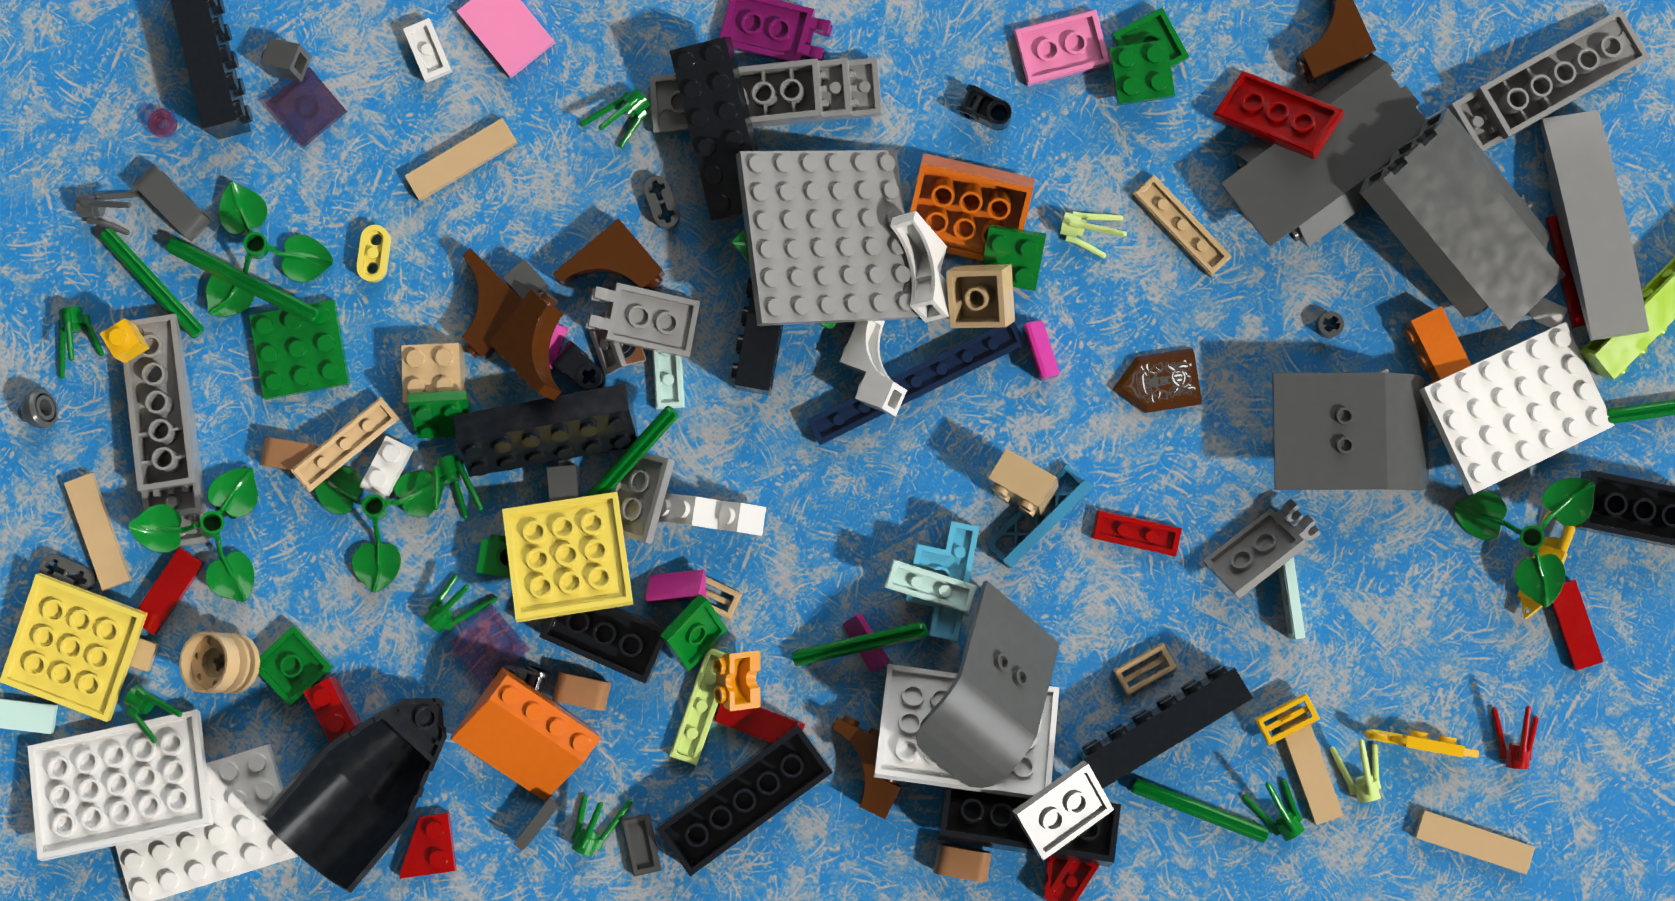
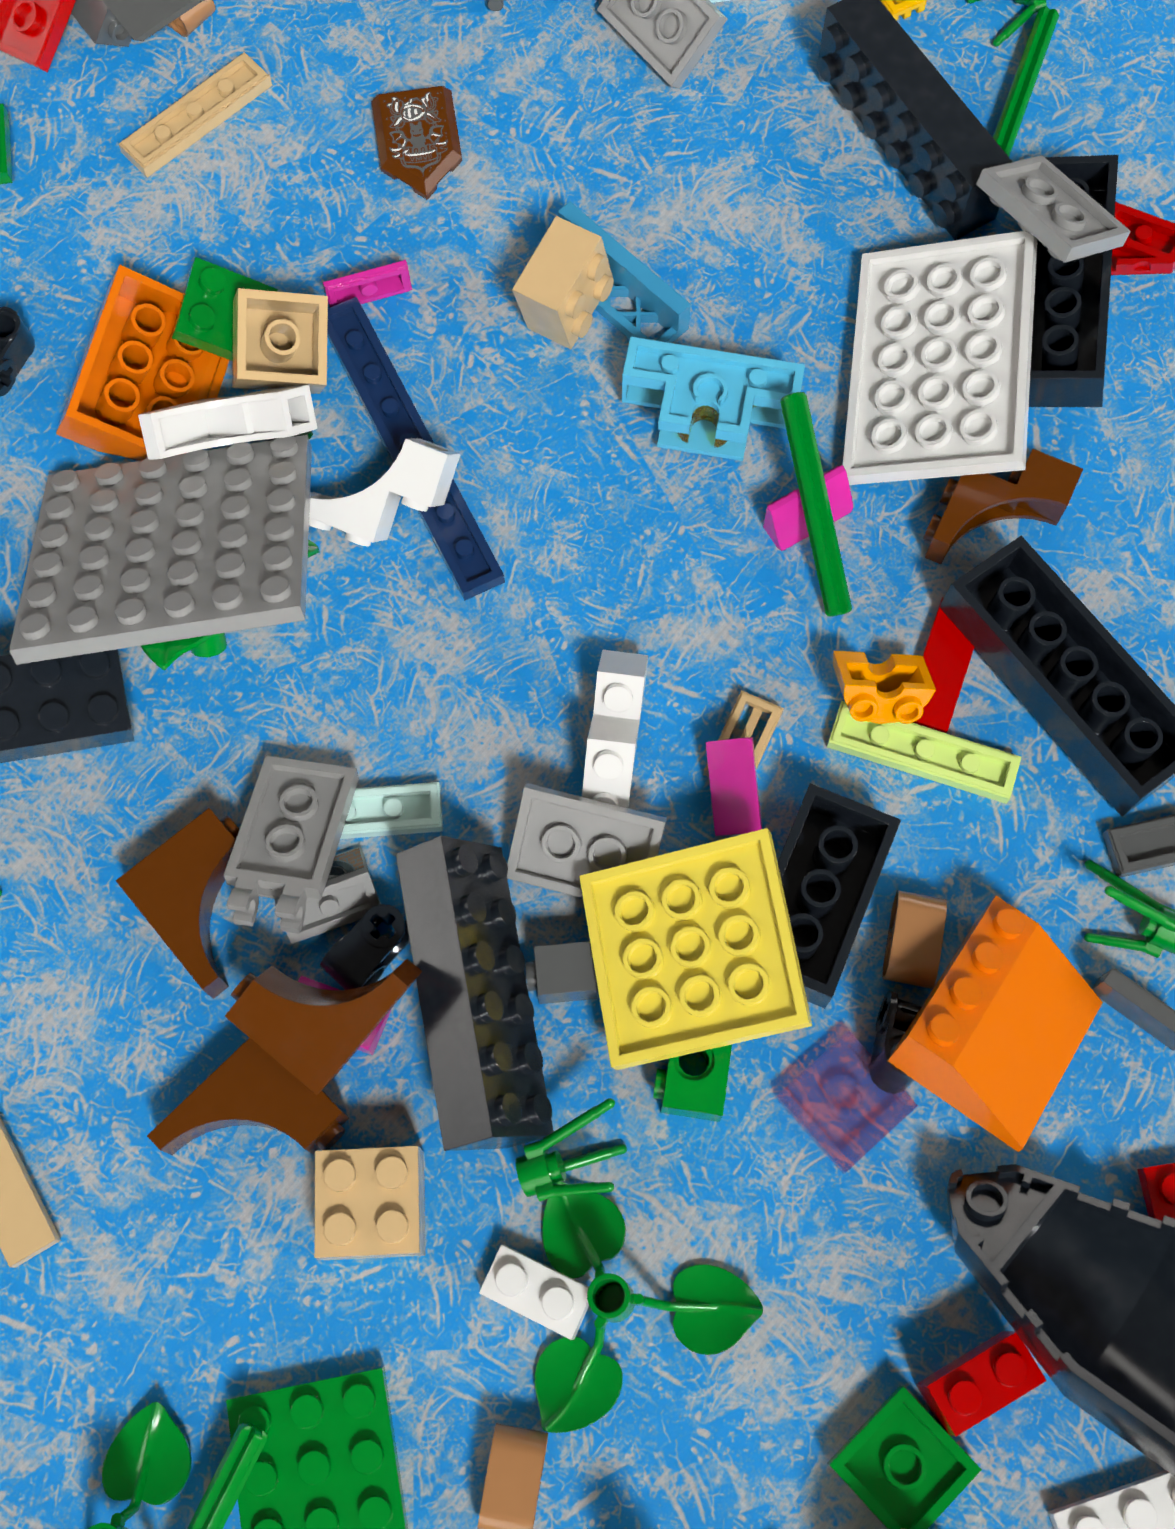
camera: 90 degrees left, 15 degrees down
(344, 444) = (496, 1371): tan tile -> none
(373, 254) = (149, 1322): light yellow plate -> none
(435, 412) = (440, 1187): green plate -> none
(440, 613) = (799, 1185): green plant -> none
(524, 278) = (210, 1039): dark grey brick -> none
(635, 452) = (515, 848): green axle -> none
(668, 199) = (96, 813): dark grey beam -> none
(694, 632) = (810, 749): green plate -> none
(757, 351) = (331, 655): black brick -> none
(930, 586) = (723, 398): light aqua tile -> none
(962, 862) = (1132, 376): medium nougat beam -> none
(997, 697) = (837, 314): dark grey door -> none
(1074, 226) = (184, 235): yellowish green plant -> none
(1136, 533) = (634, 167): red tile -> none
(1165, 657) = (821, 159): tan tile -> none

